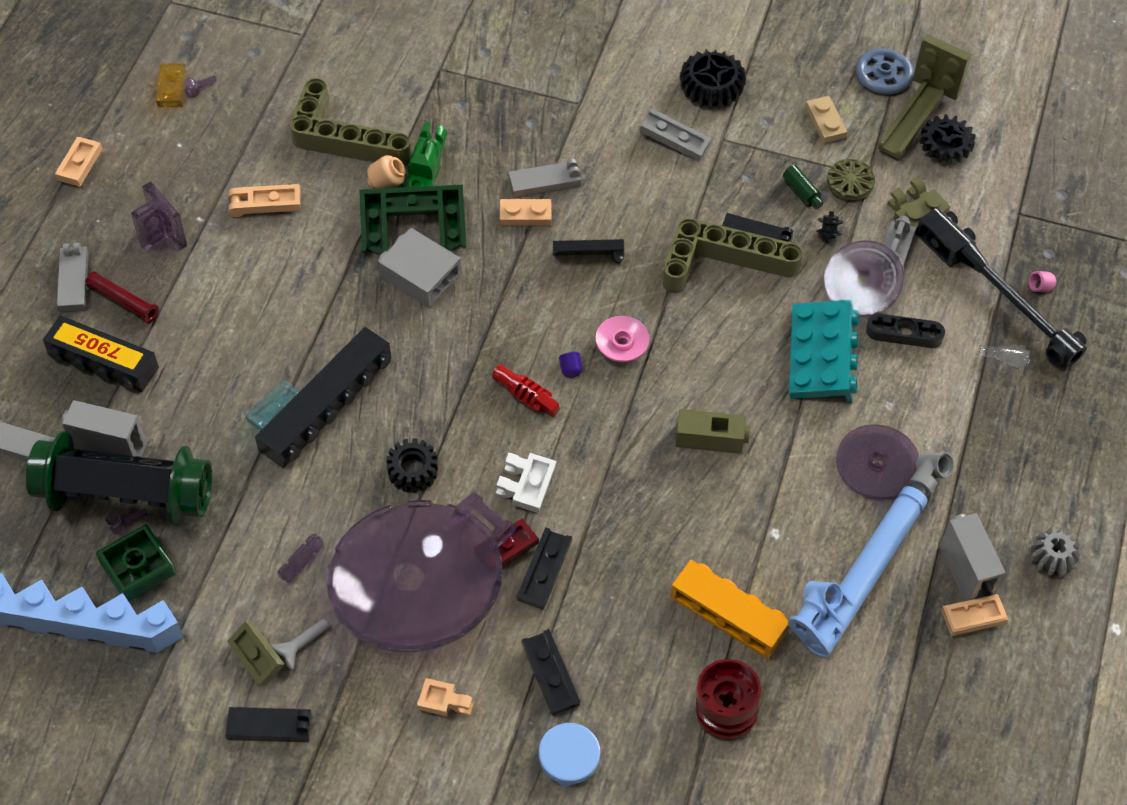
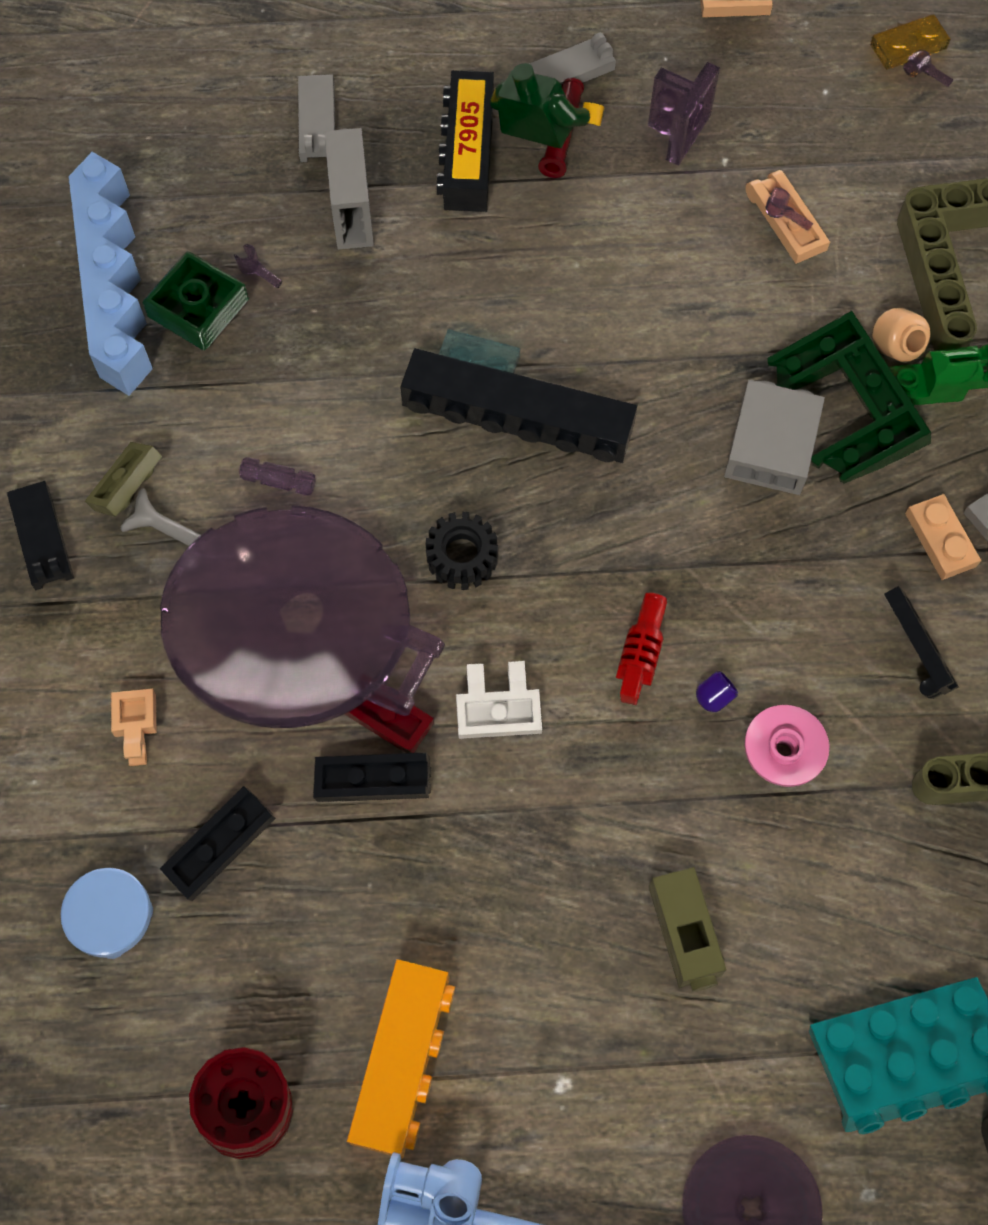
camera: 70 degrees right, 10 degrees up
(61, 471) = (295, 255): brick -> none
(108, 299) = (538, 109): none -> dark green torso
(261, 199) = (778, 206): none -> hand

